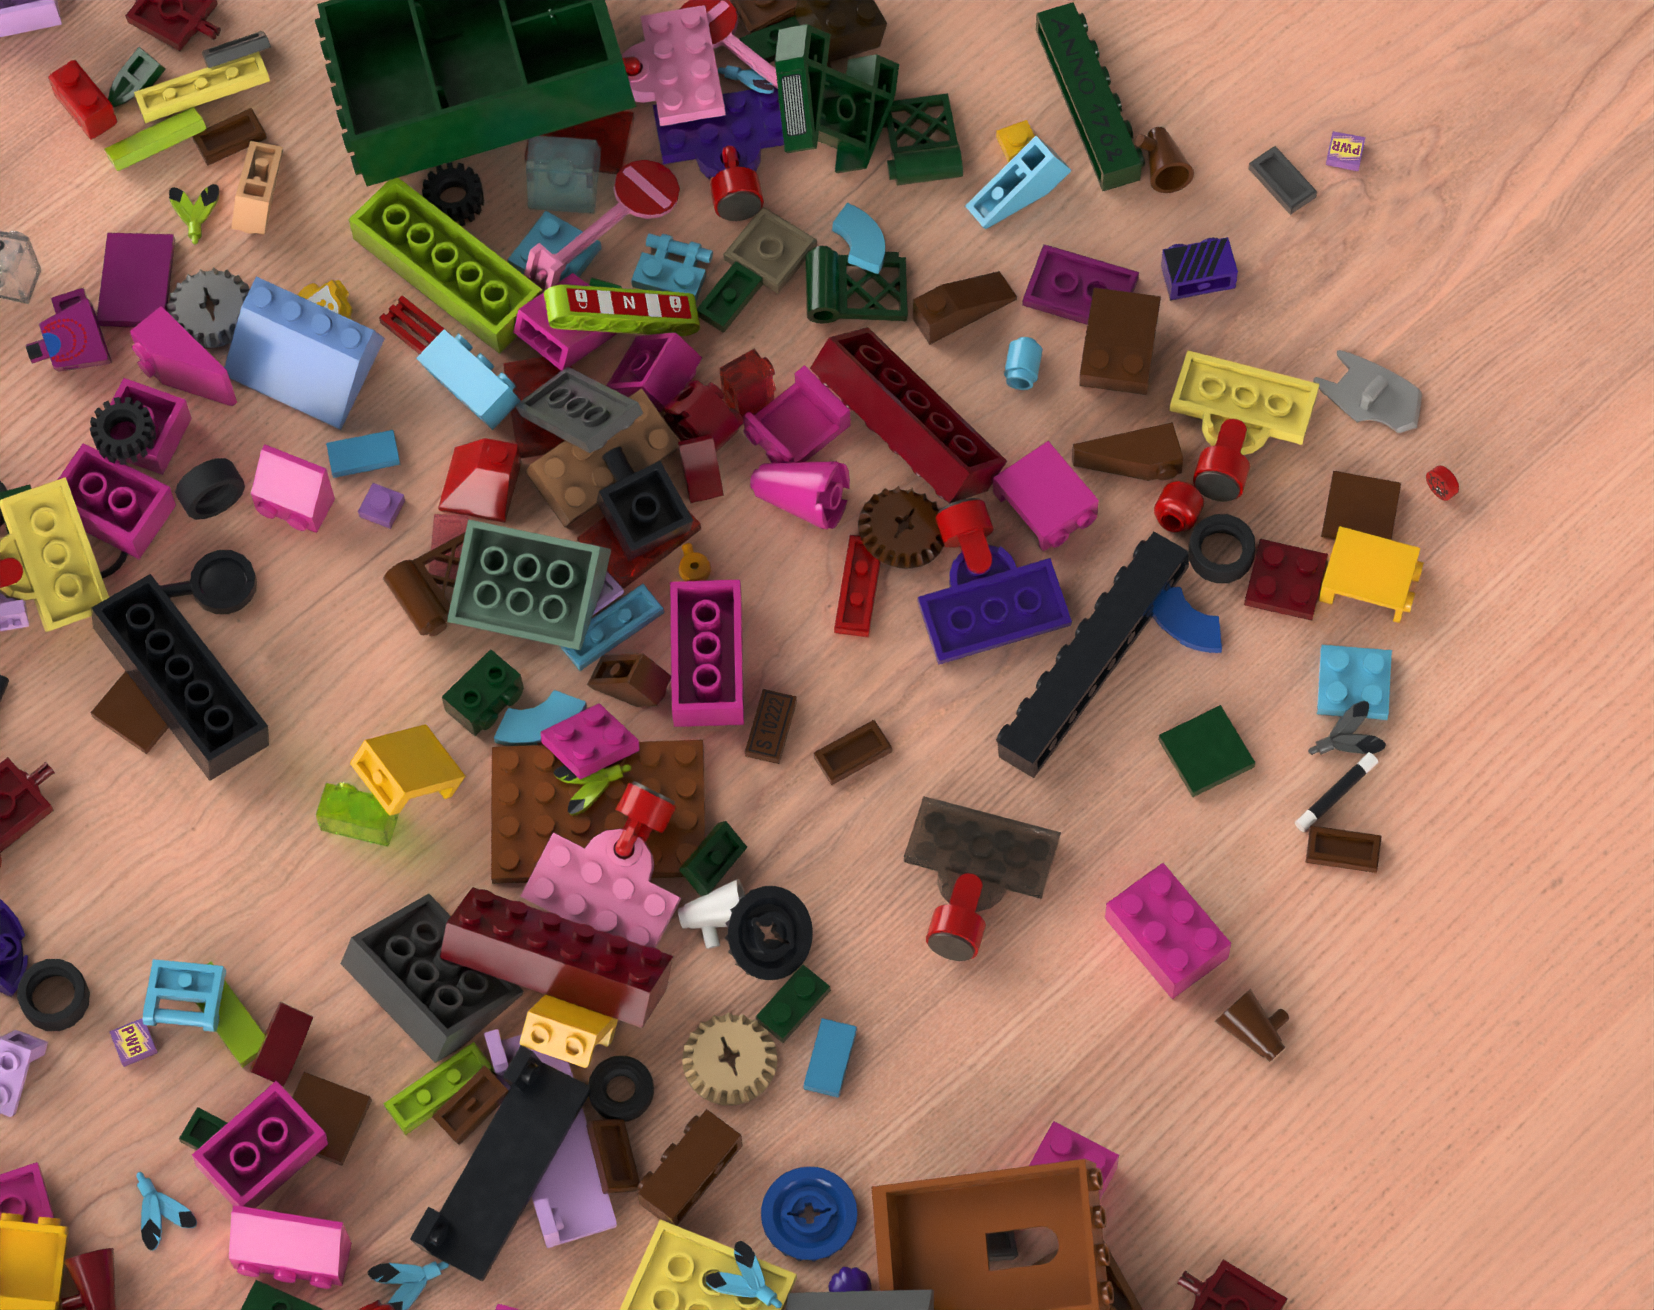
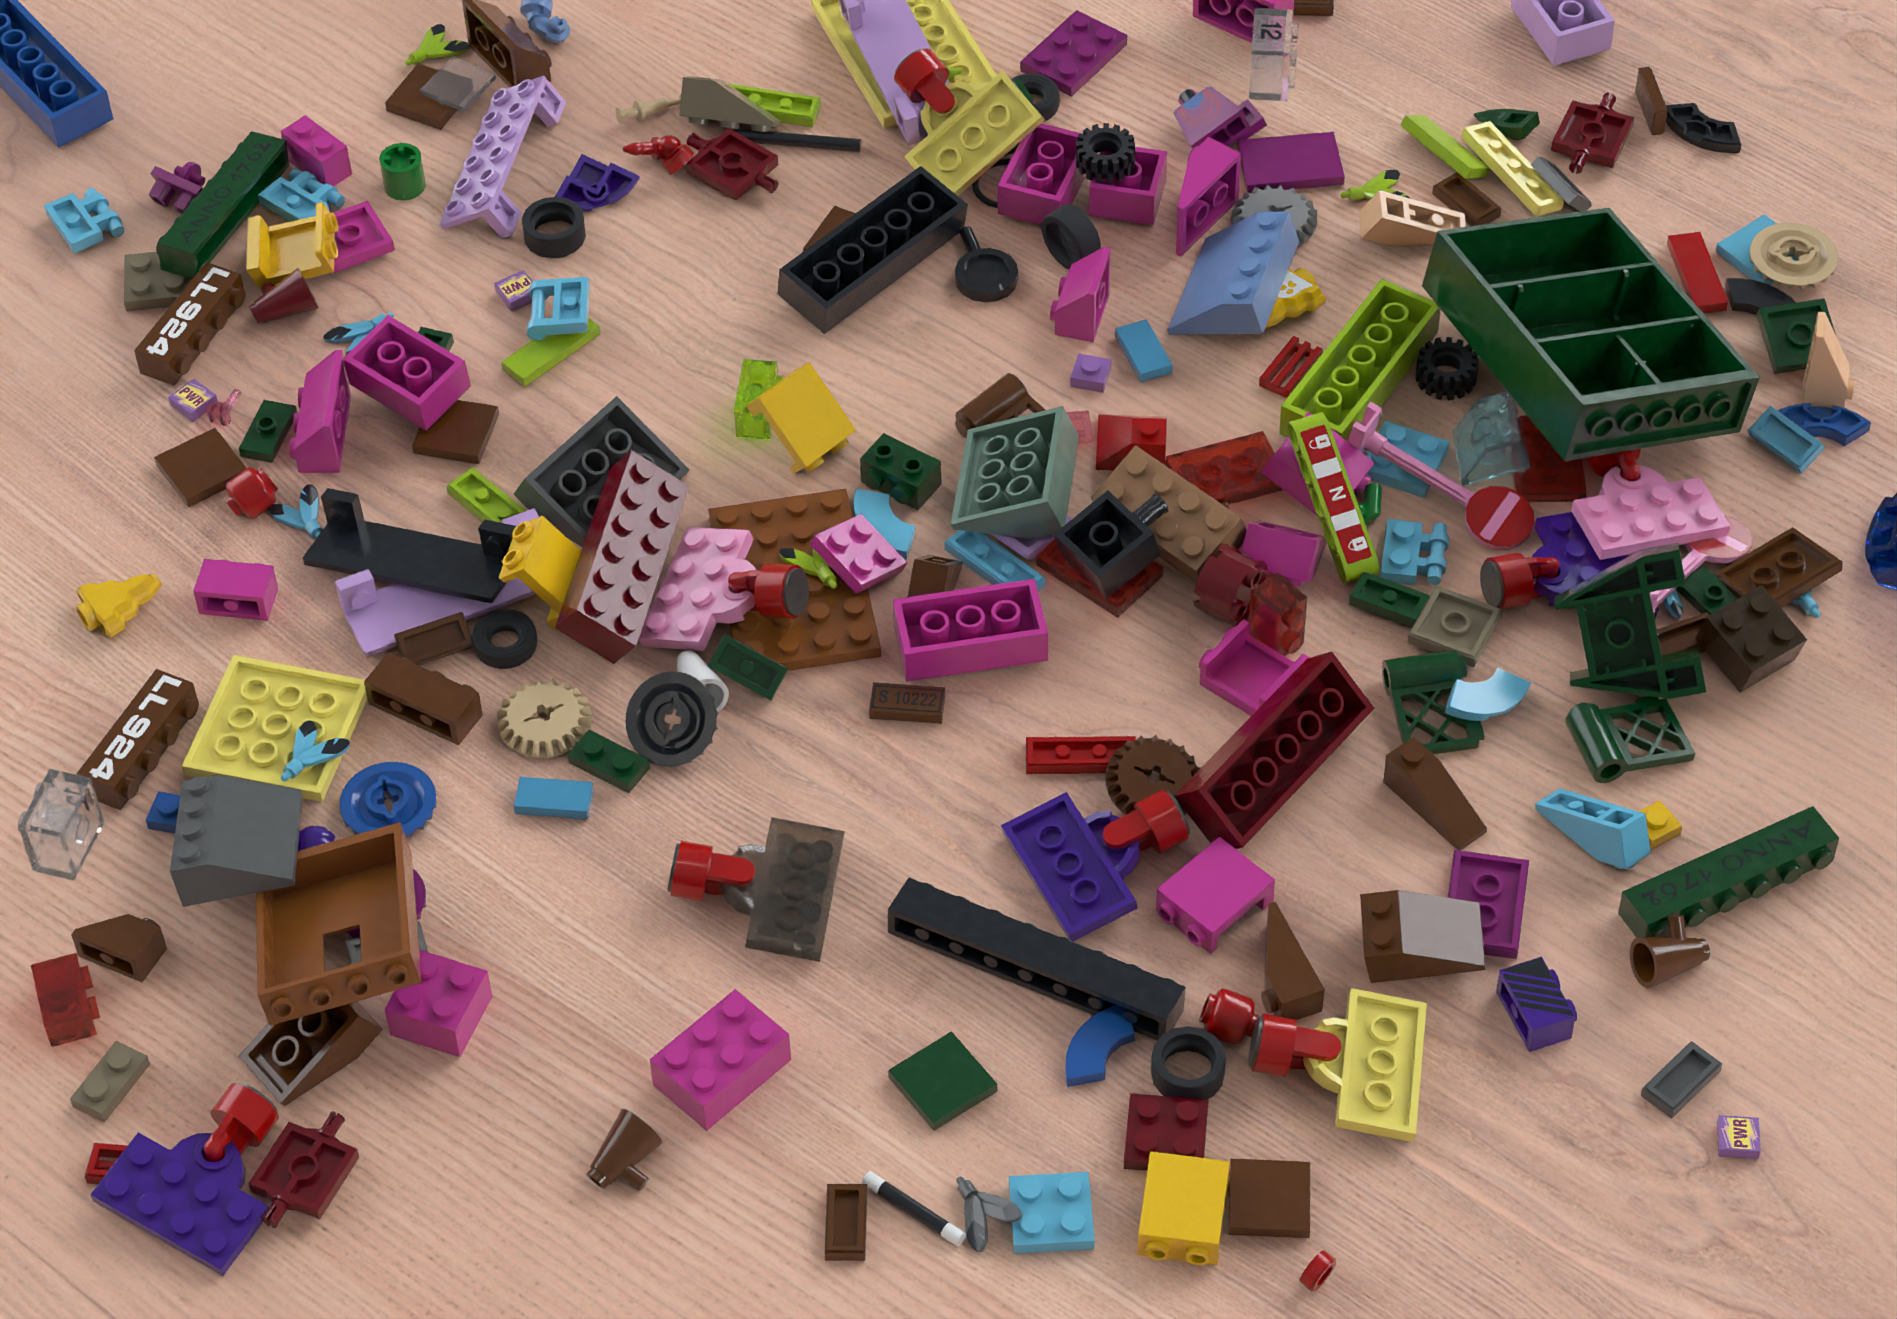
camera: 80 degrees right, 15 degrees down
(82, 99) = (1469, 87): red brick -> none
(281, 1043) = (521, 383): dark red slope -> none
(469, 378) = (1234, 403): medium azure brick -> none
(471, 1105) = (463, 522): reddish brown plate -> none
(579, 409) = (1201, 470): dark grey plate -> none
(693, 560) = (1075, 618): light orange piece -> none
(701, 468) = (1171, 592): dark red slope -> none
(804, 489) = (1170, 689): dark pink cone -> none
(852, 752) = (890, 774): reddish brown tile -> none
(1023, 363) = (1373, 856): medium azure brick -> none
(1374, 394) = (1422, 1199): light grey shield -> none

